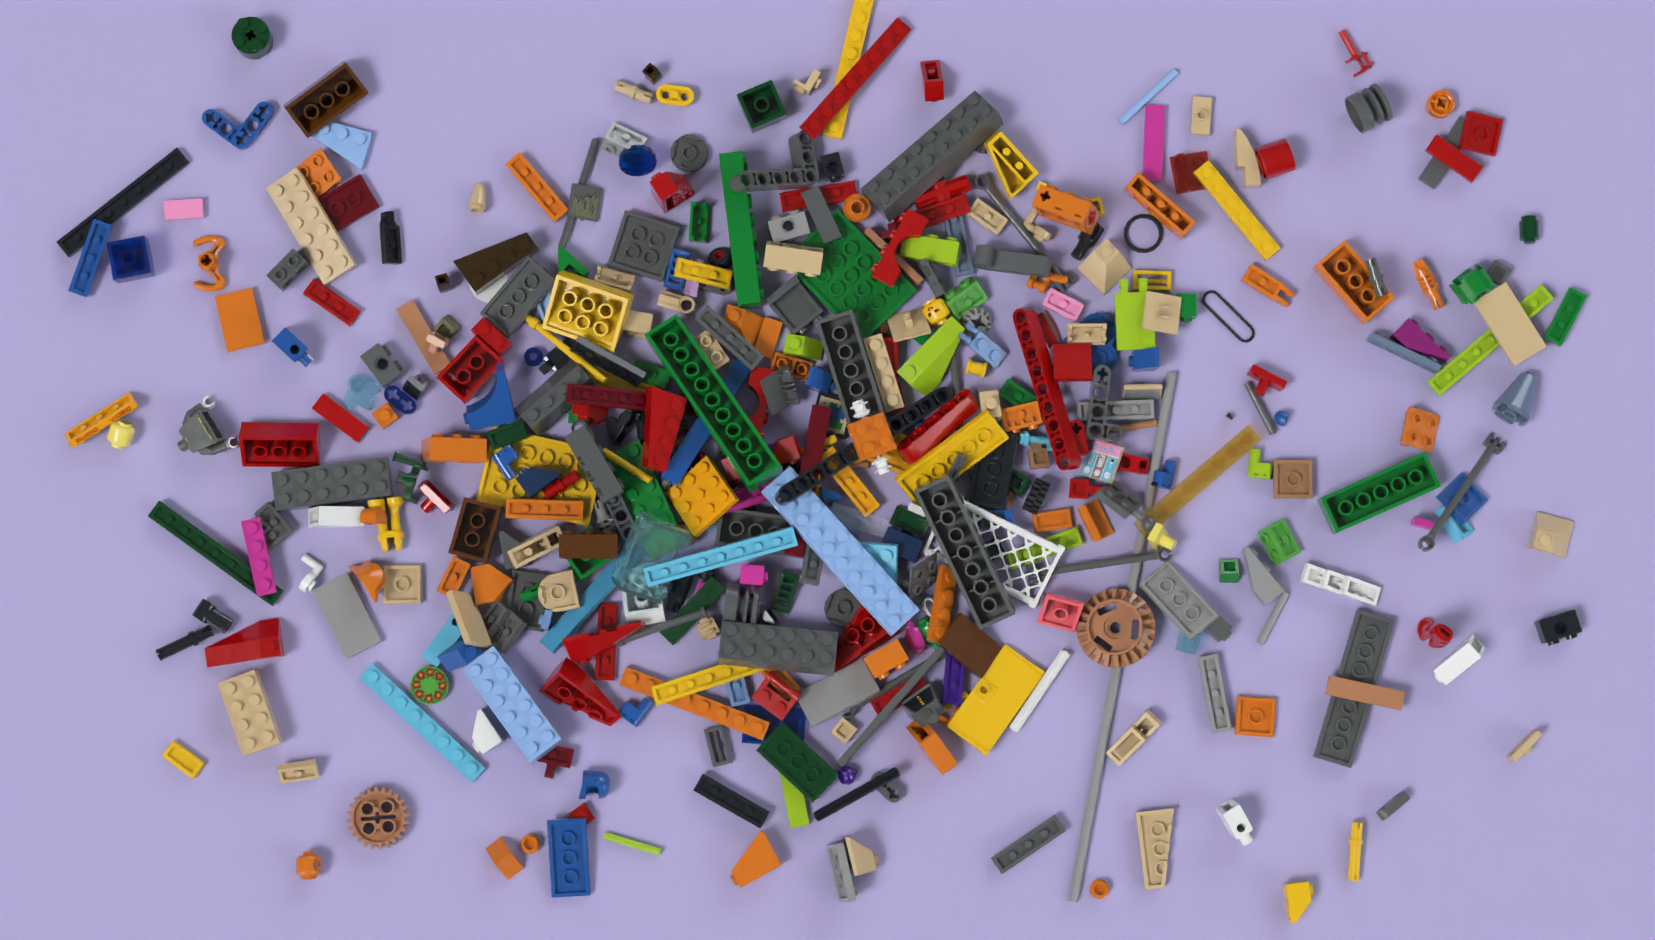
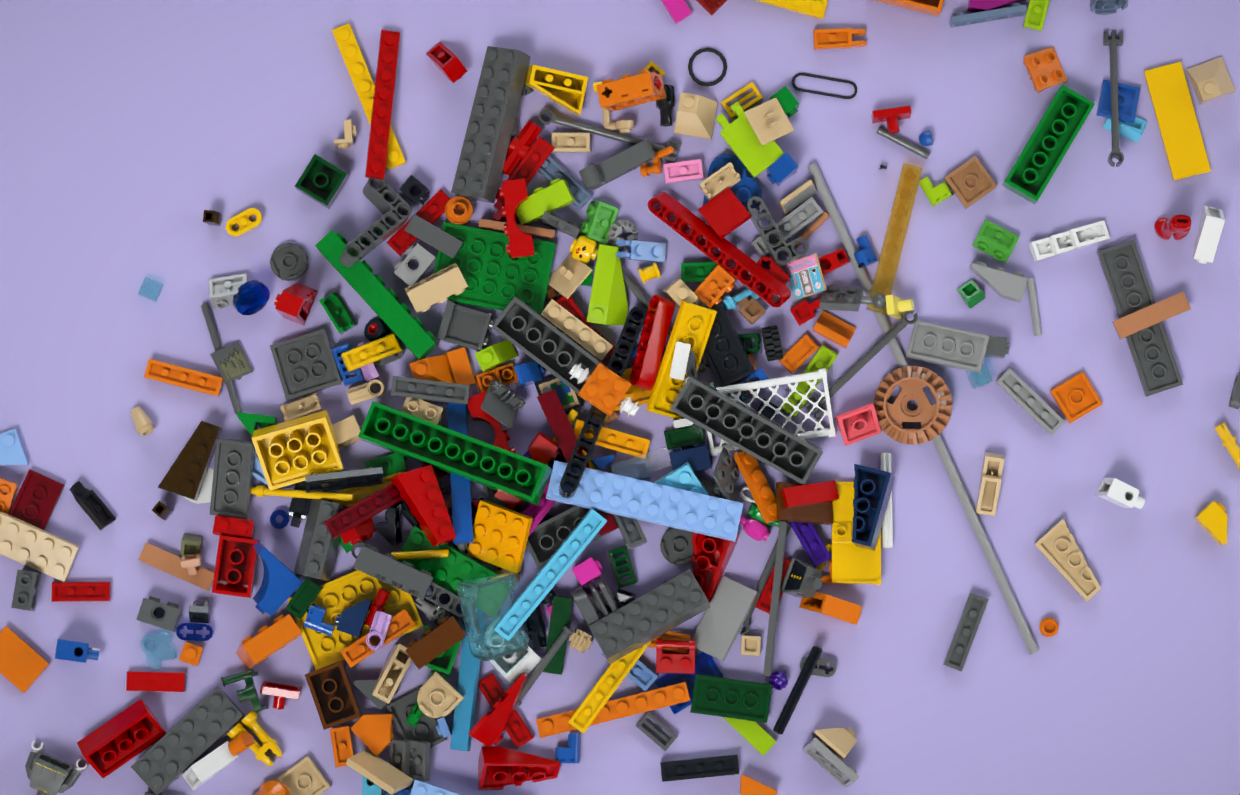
camera: 25 degrees left, 0 degrees up
(550, 503) = (379, 629): none -> lavender piece
(561, 97) = (150, 289): none -> clear light blue tile
(633, 92) = (207, 243): tan pin -> none
(885, 659) = (743, 563): orange brick -> none
(950, 457) = (680, 360): none -> white sticker
(979, 641) = (810, 494): none -> red tile
(1023, 684) = (870, 503): none -> dark blue wedge
(1049, 329) = (686, 199): red sticker -> none
(1159, 206) = (705, 35): orange brick -> none
(1422, 523) = (1100, 144): dark pink tile -> none
(1499, 548) = (1177, 121): none -> yellow tile

